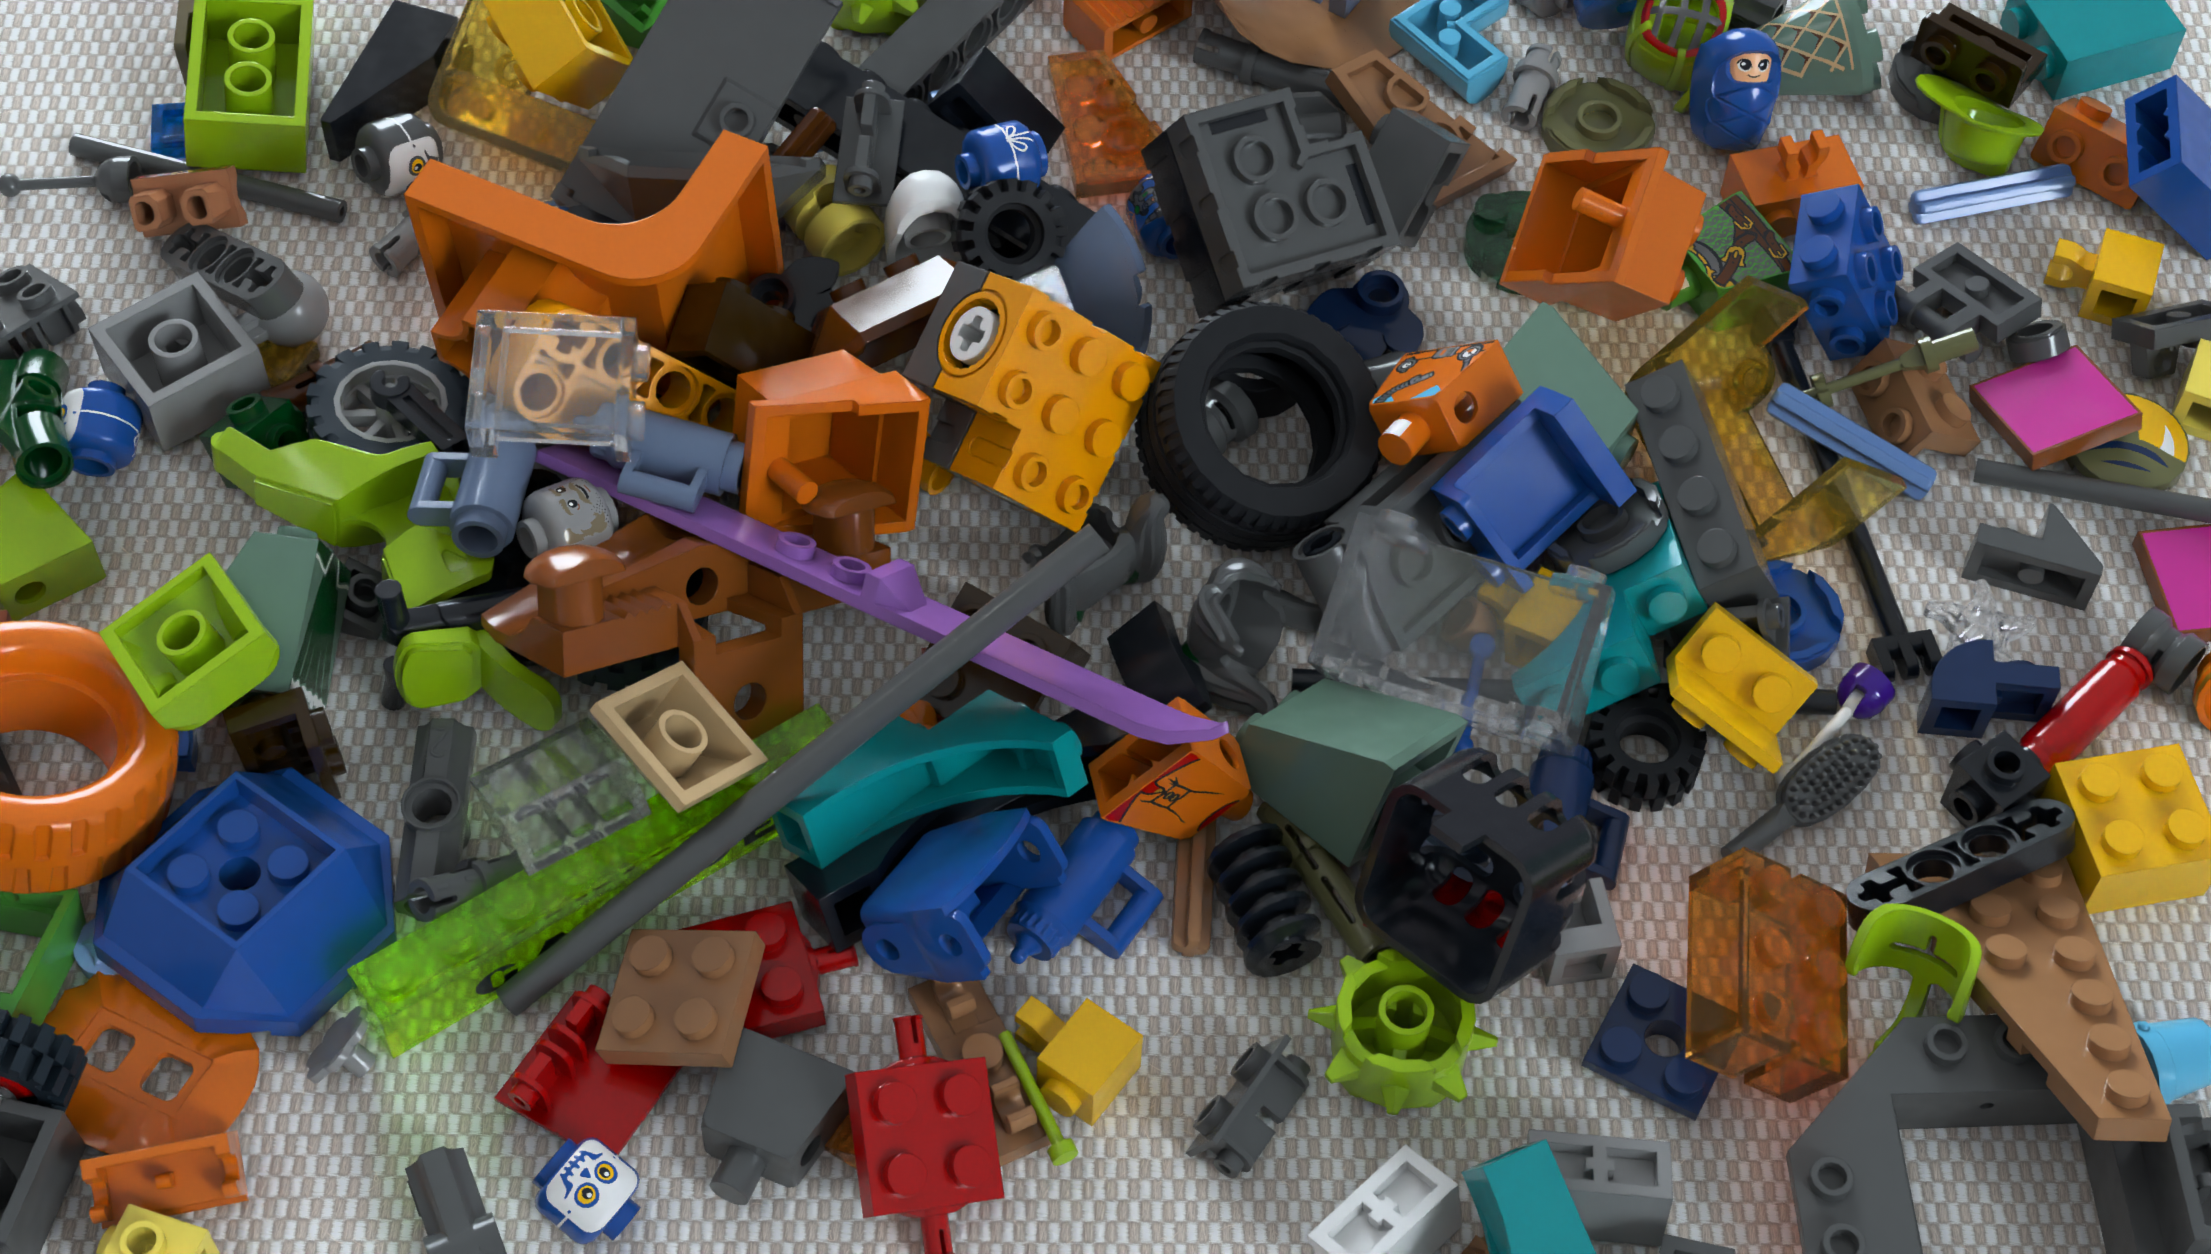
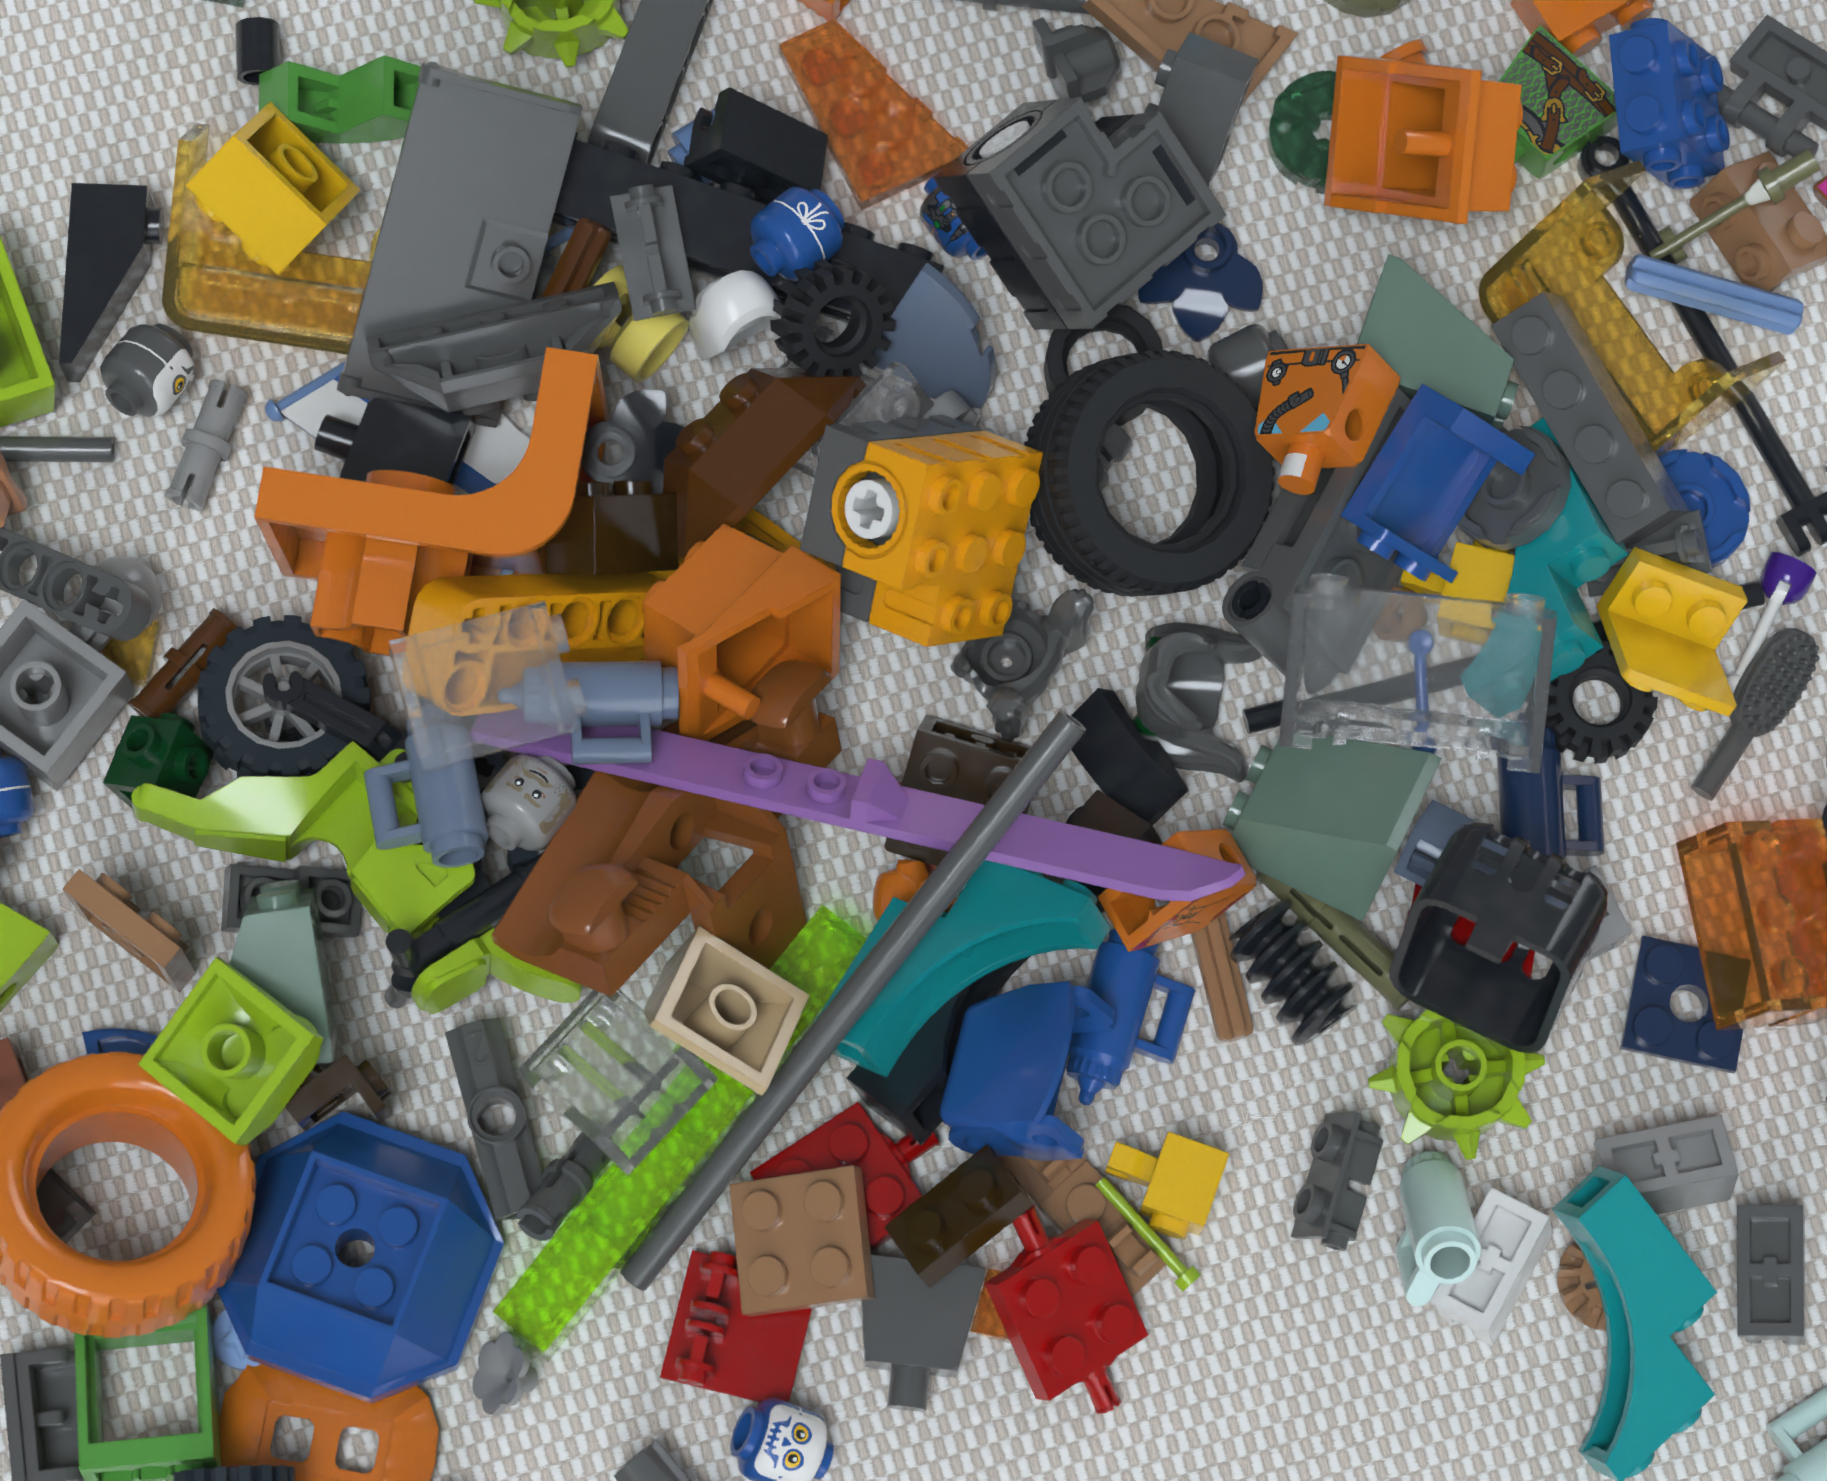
camera: 20 degrees left, 20 degrees up
(149, 530) = (114, 914): none -> medium nougat plate
(843, 1009) = (958, 1216): none -> dark brown bracket
(1334, 1165) = (1440, 1228): none -> light aqua piece

